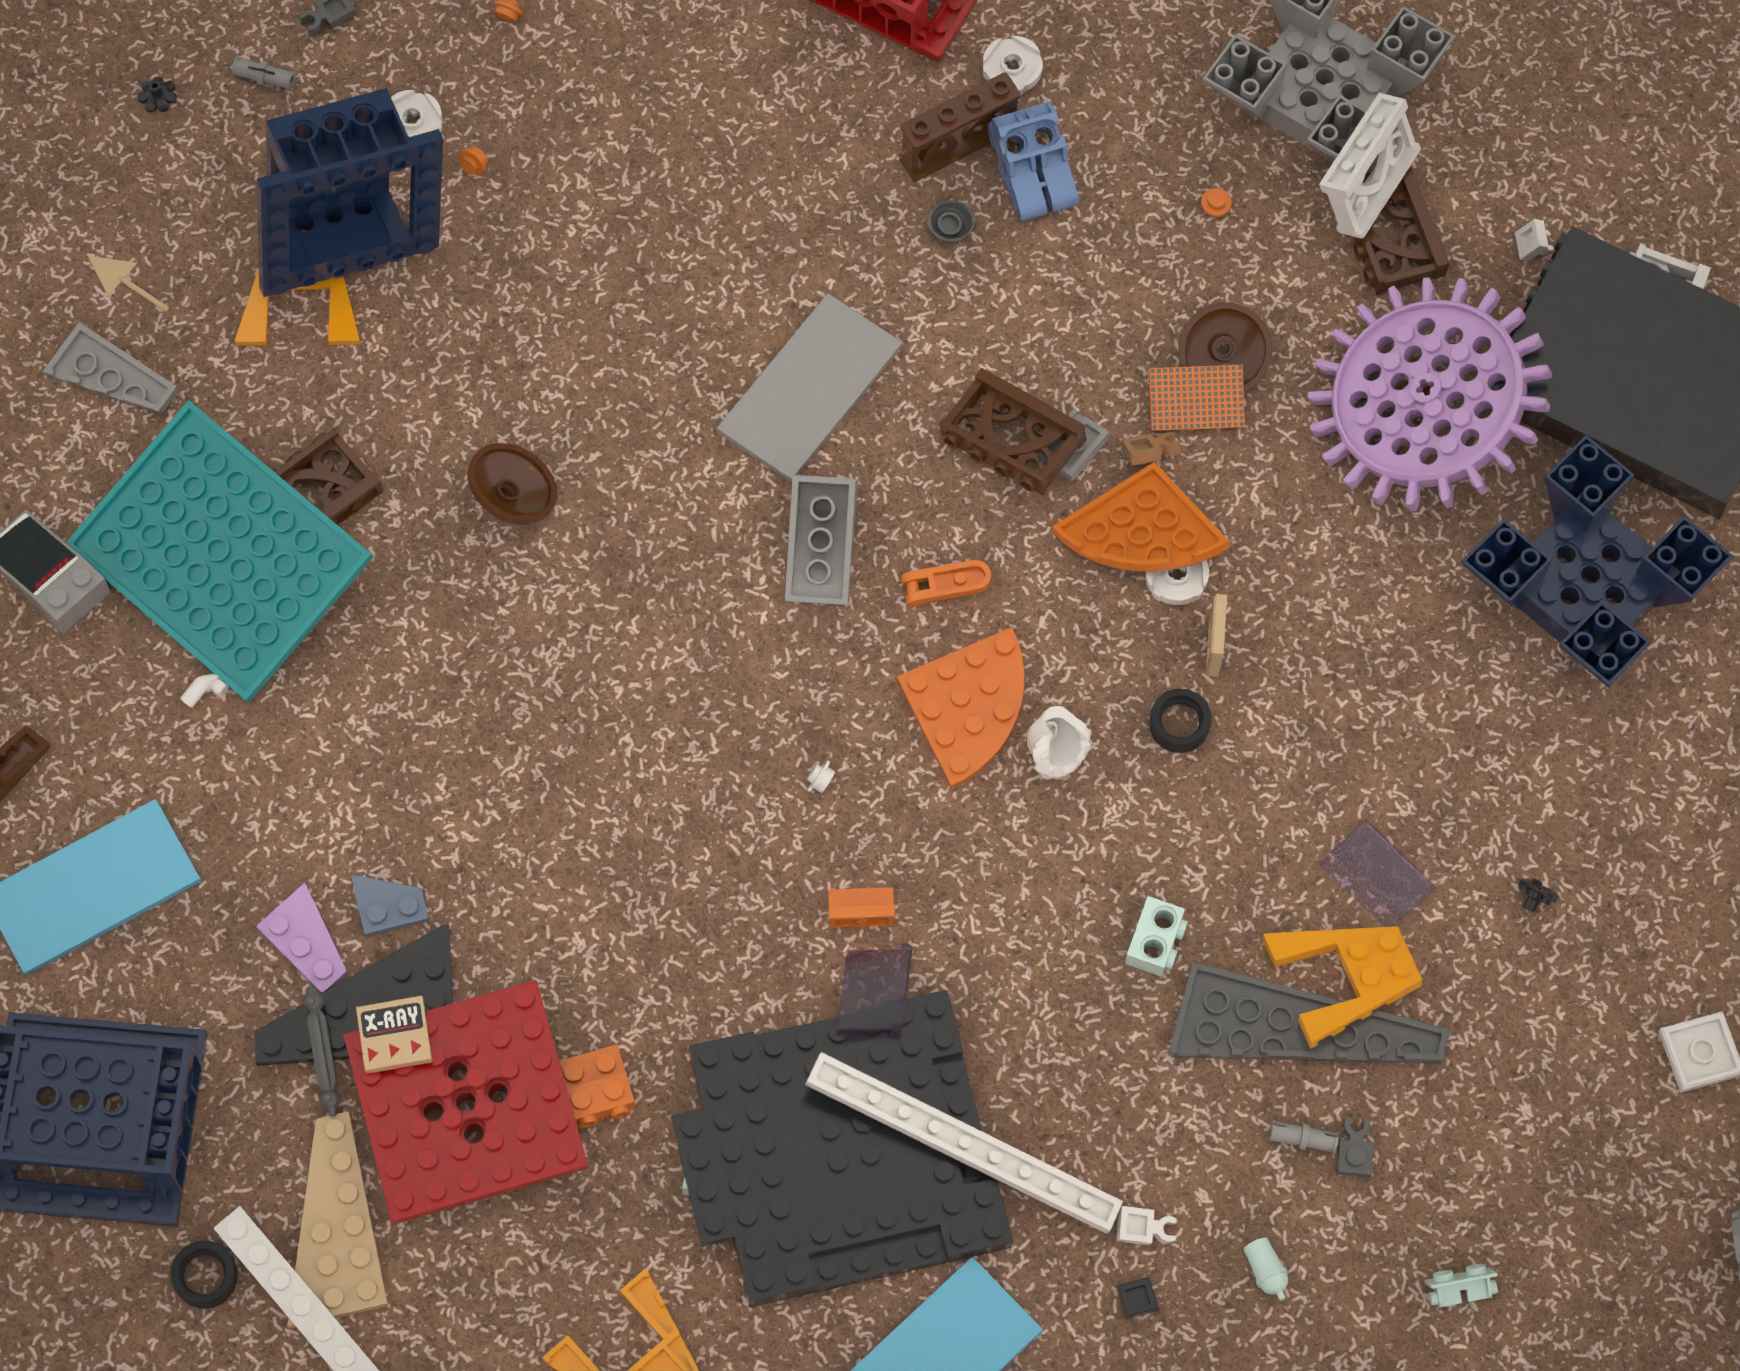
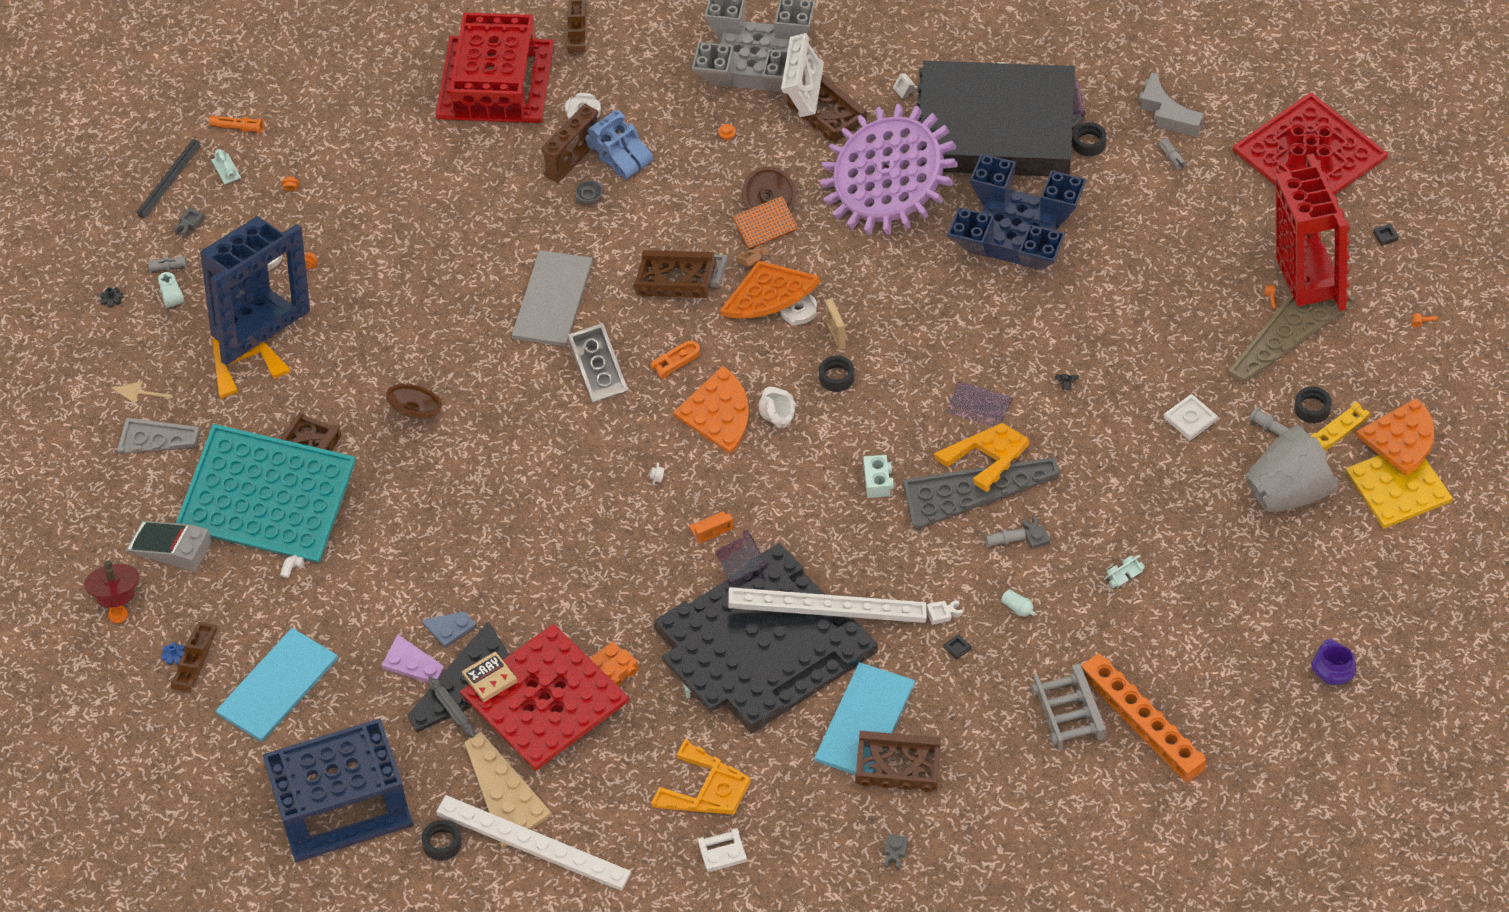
camera: 20 degrees left, 15 degrees down
(244, 126) = (169, 289): none -> light aqua piece

